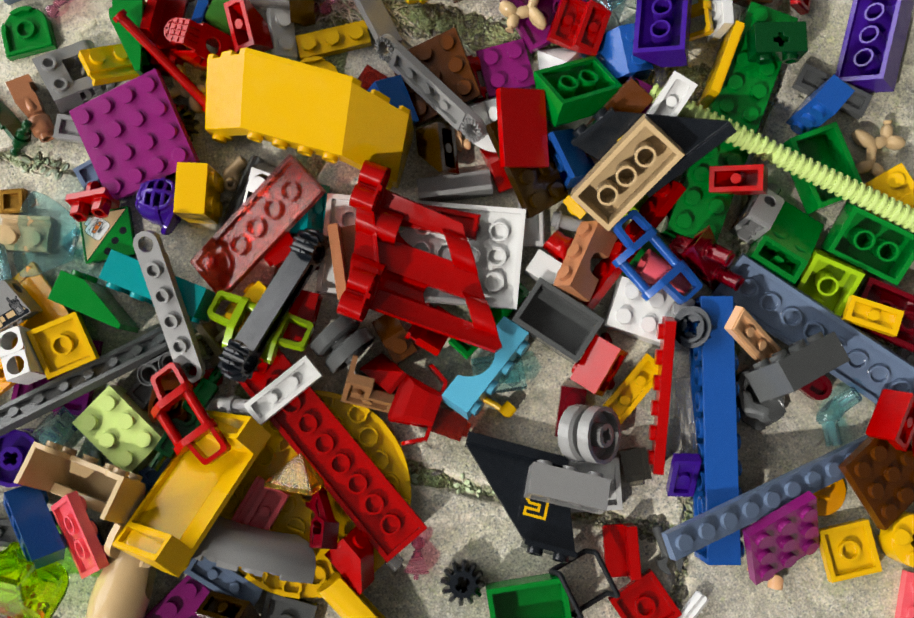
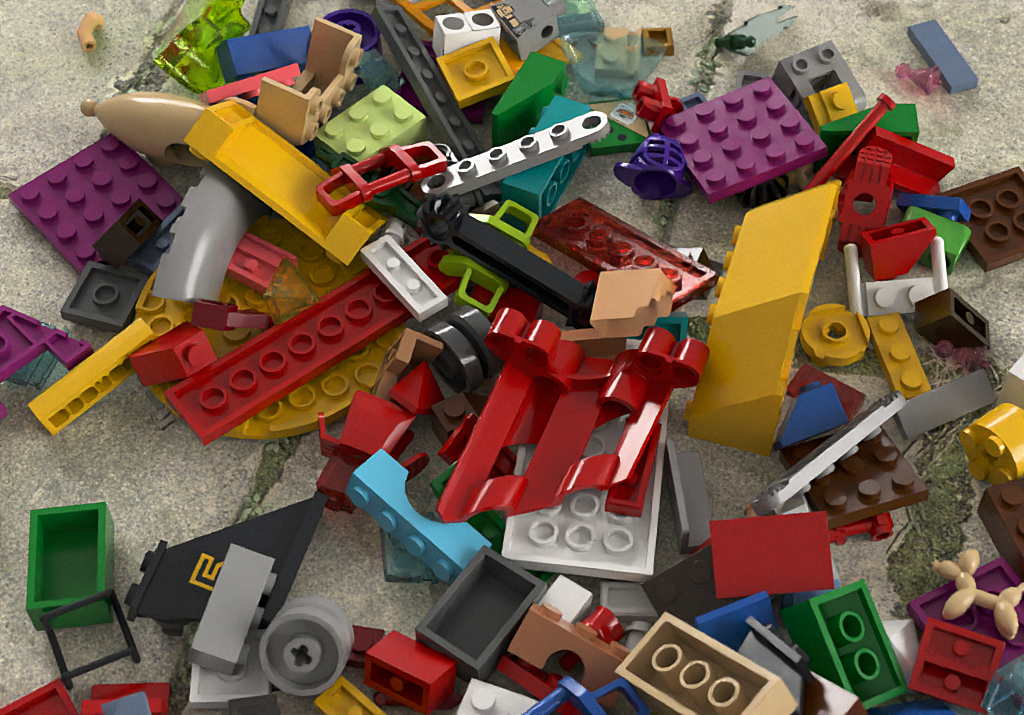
camera: 90 degrees right, 30 degrees down
(27, 33) = (871, 50): green tile -> none
(27, 100) = (775, 48): nougat piece -> none
(198, 193) = (668, 200): yellow brick -> none
(231, 173) = (688, 240): tan arm -> none
(320, 216) = (630, 301): none -> light nougat piece
(416, 563) = (155, 441): clear pink piece -> none
(438, 147) = (740, 471): dark brown slope -> none
(459, 591) = (123, 489): black gear -> none
(506, 67) = (884, 566): magenta plate -> none
(506, 409) = (356, 557): yellow hand -> none

